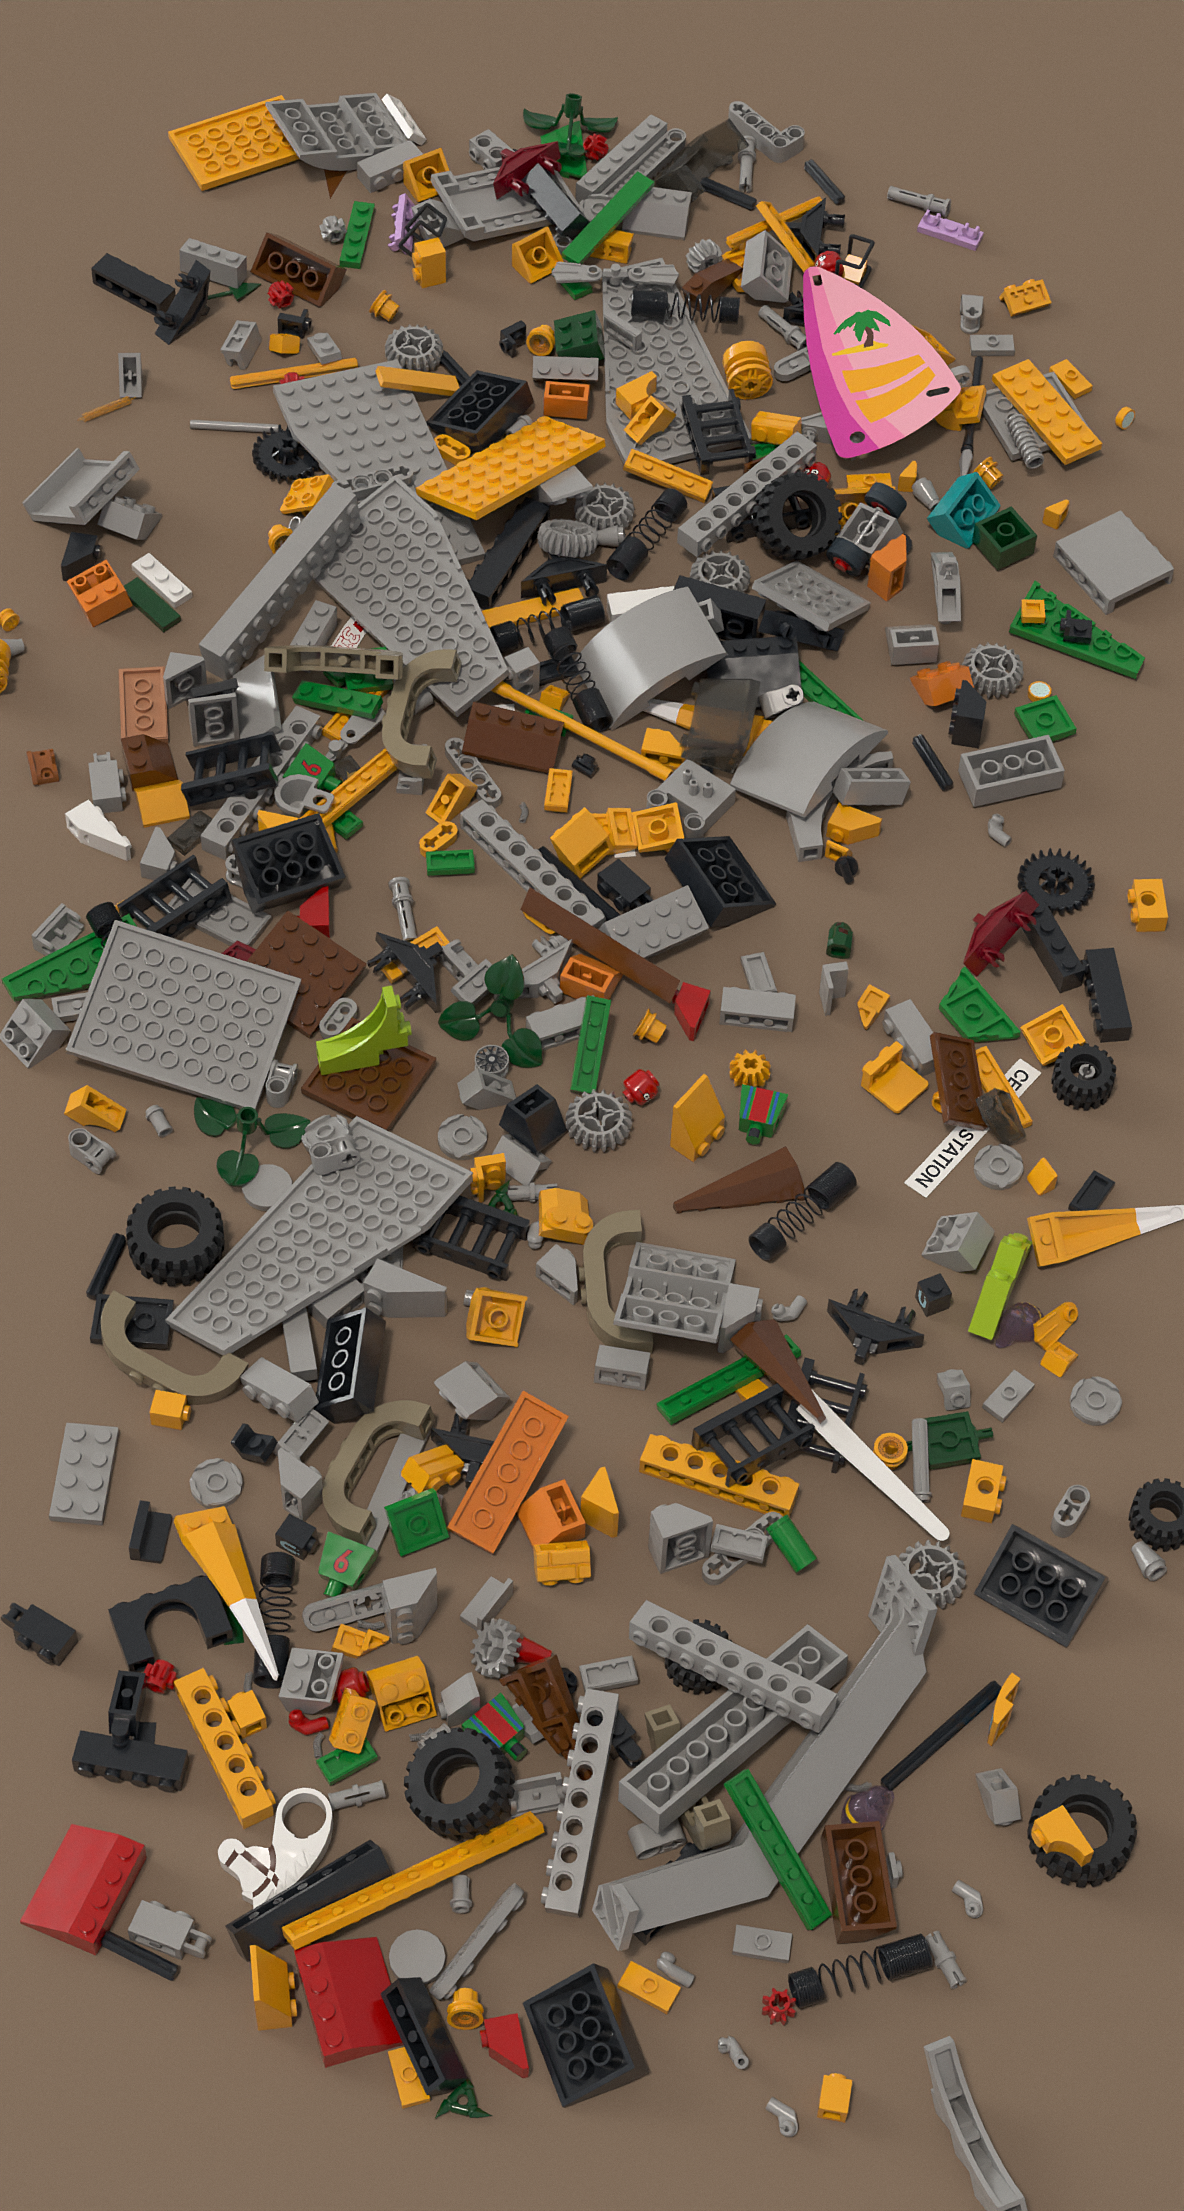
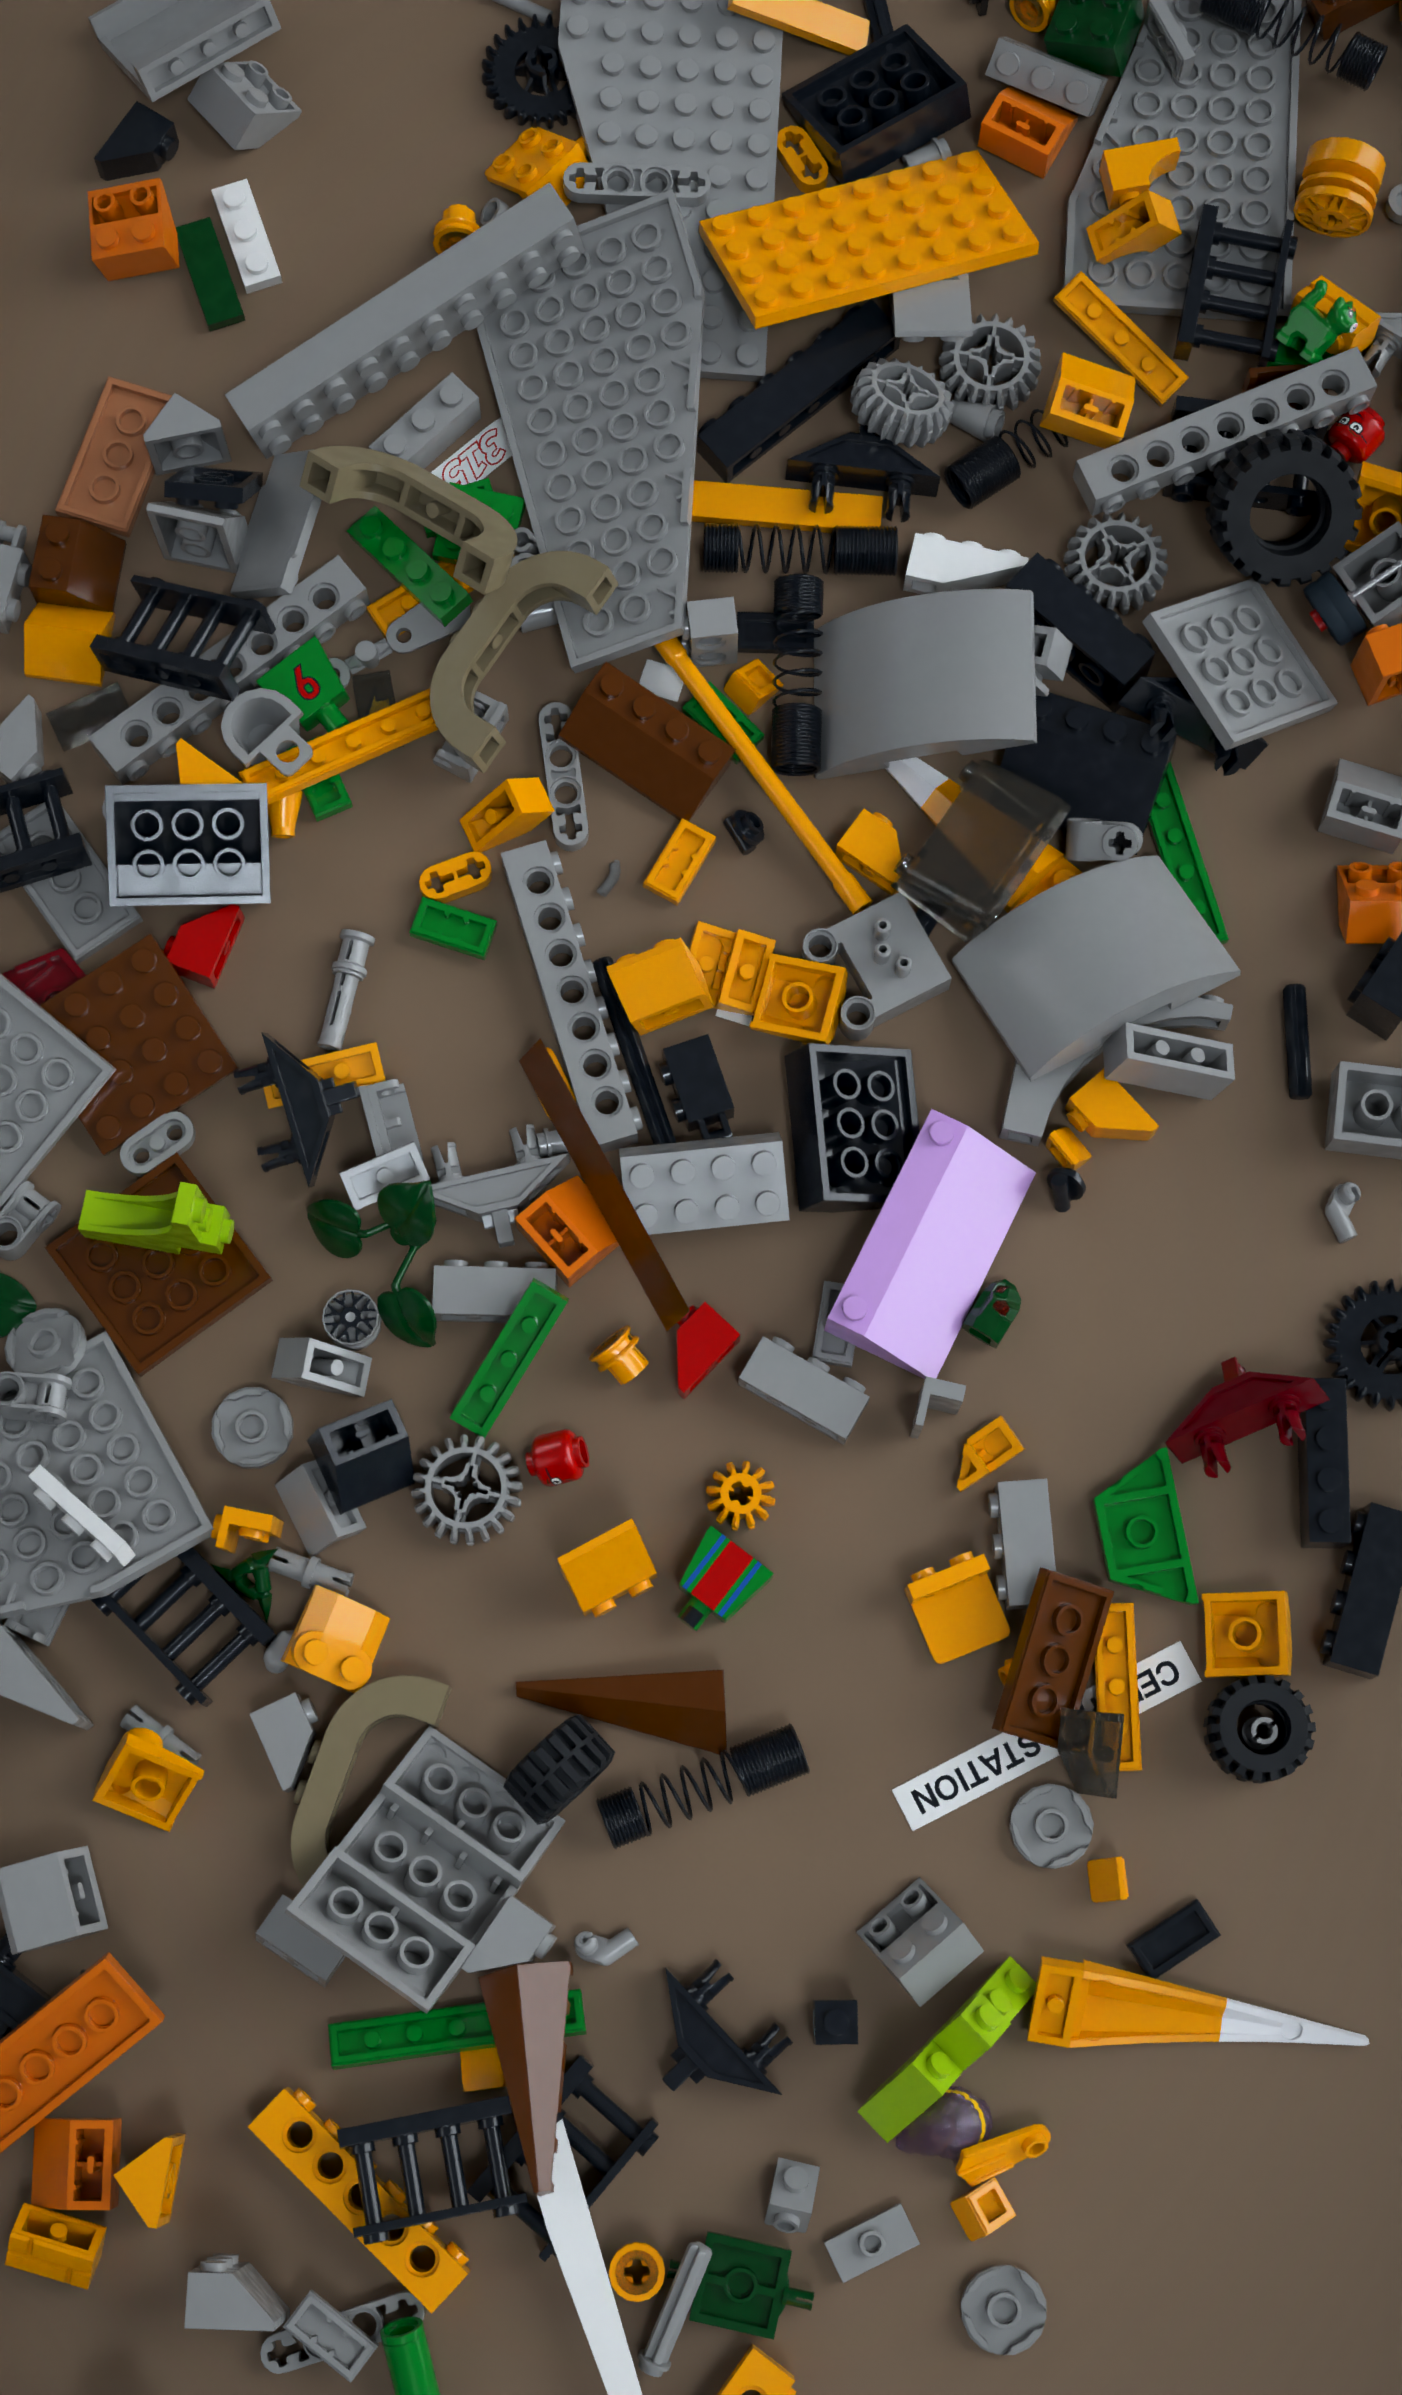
camera: 25 degrees right, 20 degrees up
(397, 1190) = (80, 1517): none -> white plate
(670, 502) = (1089, 402): none -> light orange slope
(721, 1224) = (559, 1769): none -> black tyre
(768, 431) = (1310, 324): none -> green animal
(790, 918) = (930, 1247): none -> lavender slope

